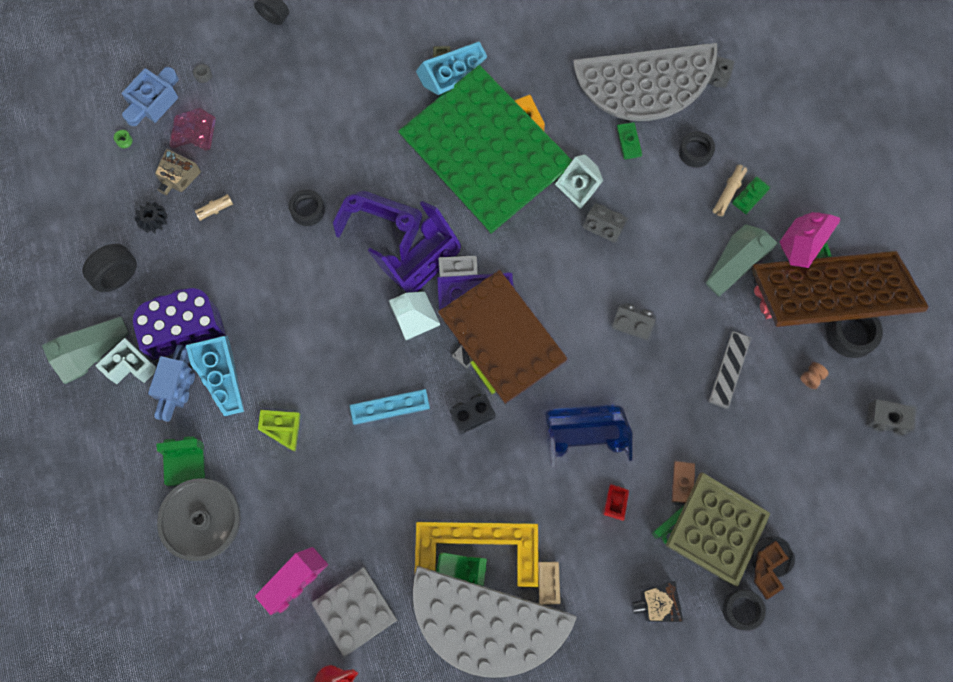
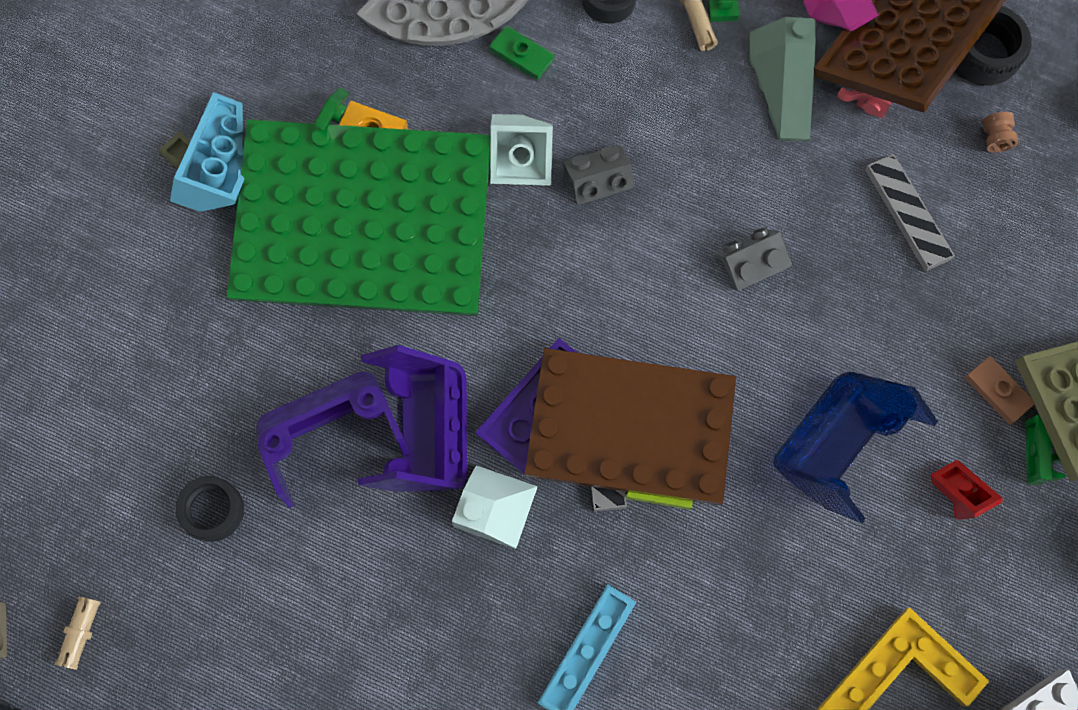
camera: 50 degrees left, 0 degrees up
(457, 266) = (487, 394): light grey plate -> none
(475, 418) = (704, 559): black brick -> none
(518, 90) = (332, 109): none -> green plate
(548, 583) = (994, 663): tan plate -> none

